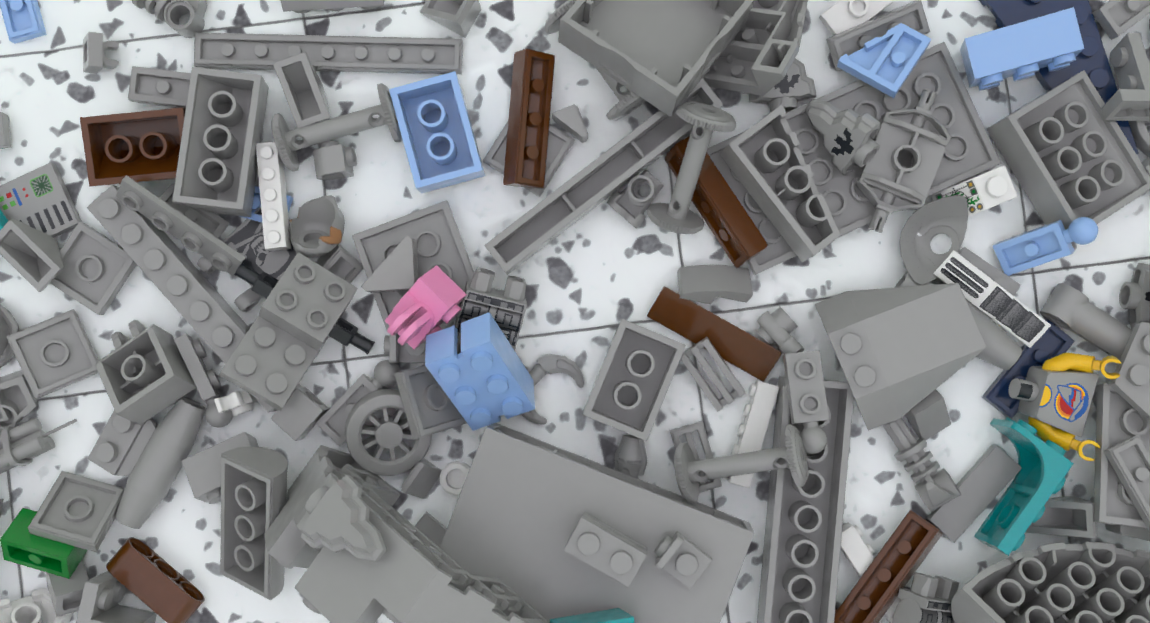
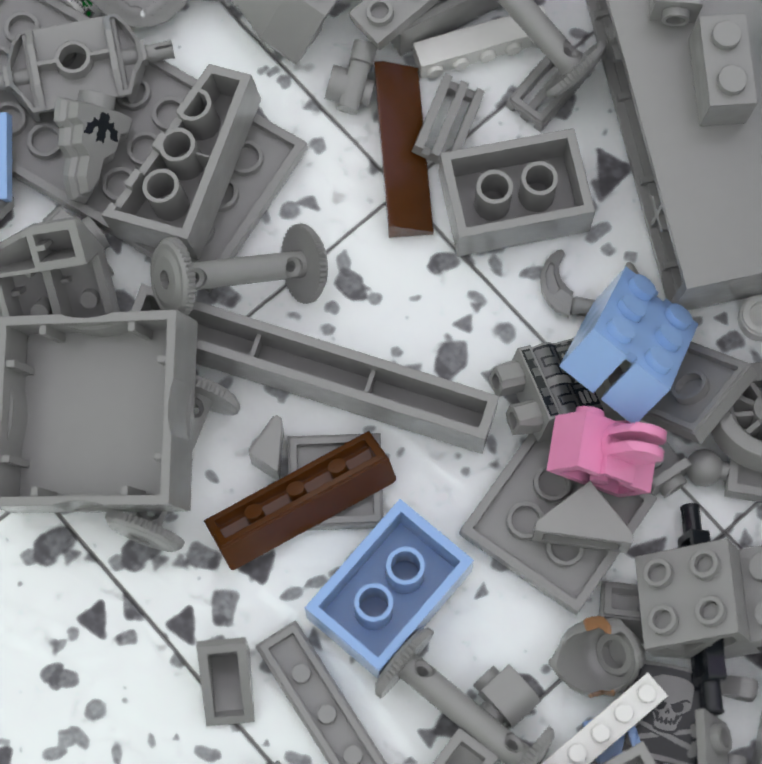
camera: 125 degrees left, 15 degrees down
(631, 203) = (316, 320): light grey plate -> none
(631, 456) = (602, 146): light grey piece -> none
(707, 282) = (346, 180): light grey slope -> none
(721, 209) = (260, 220): reddish brown slope -> none

